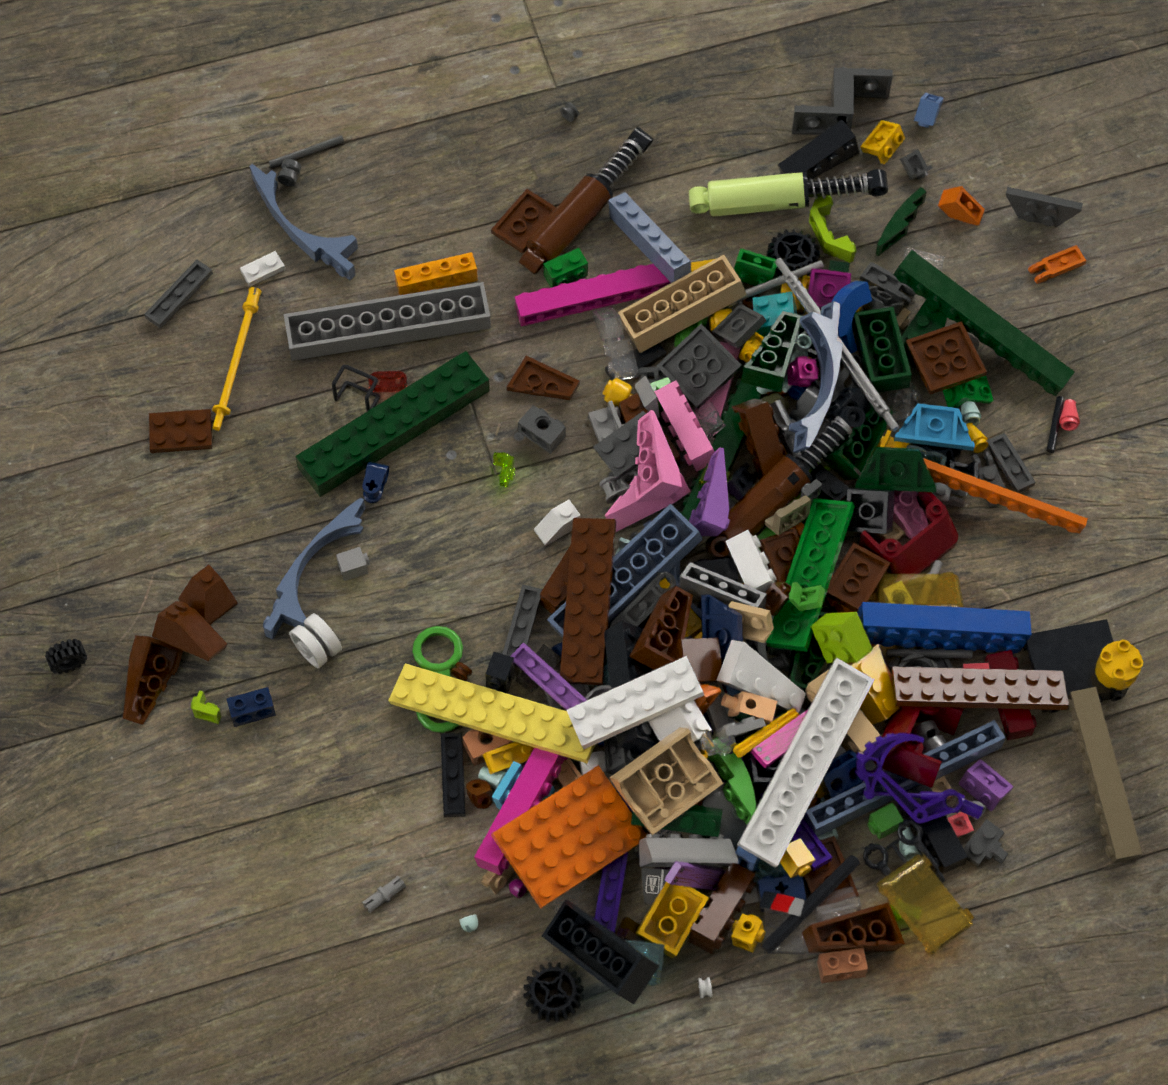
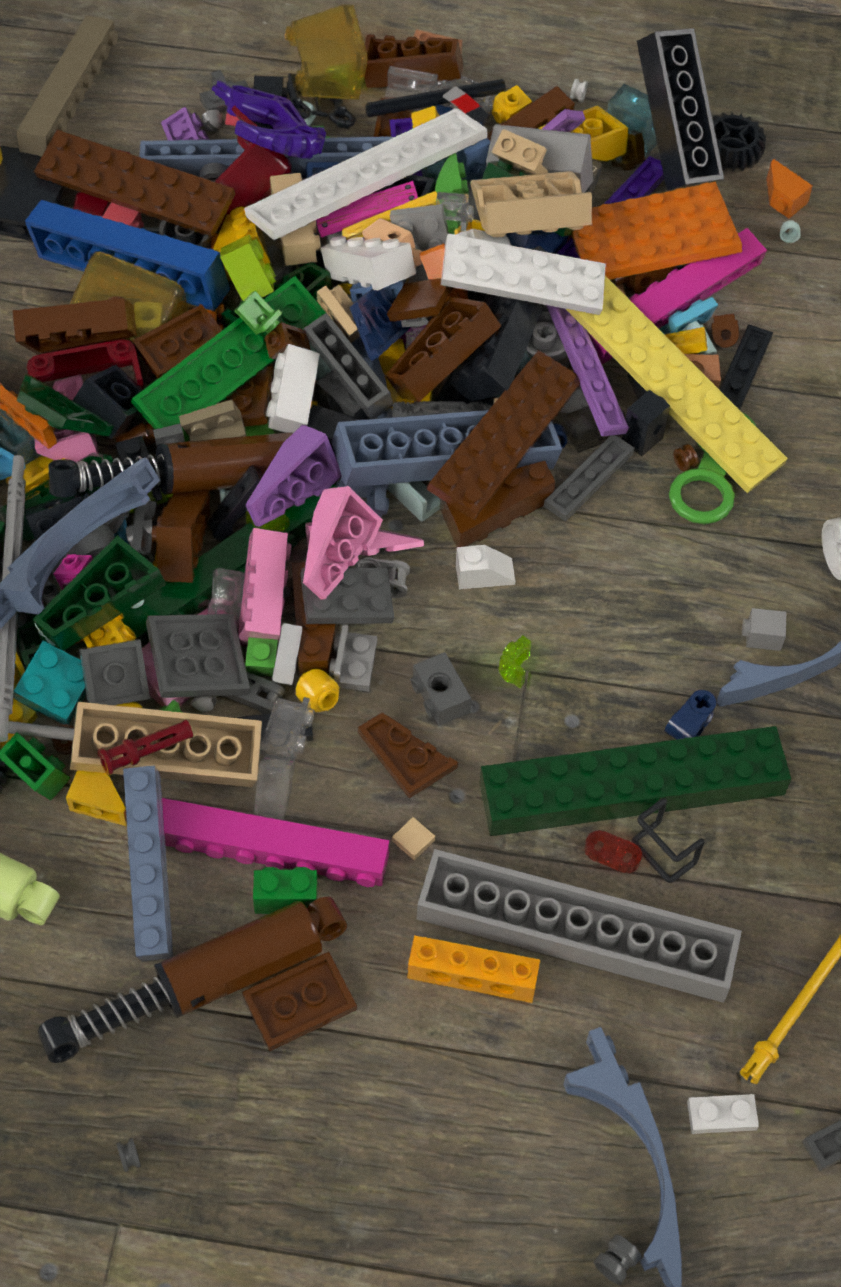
camera: 155 degrees left, 5 degrees down
(488, 959) = (786, 189): none -> orange slope
(510, 337) = (413, 838): none -> tan tile
(692, 273) = (129, 747): none -> dark red pin
(698, 827) = (521, 152): none -> tan bracket
(938, 554) = (74, 325): none -> reddish brown wedge

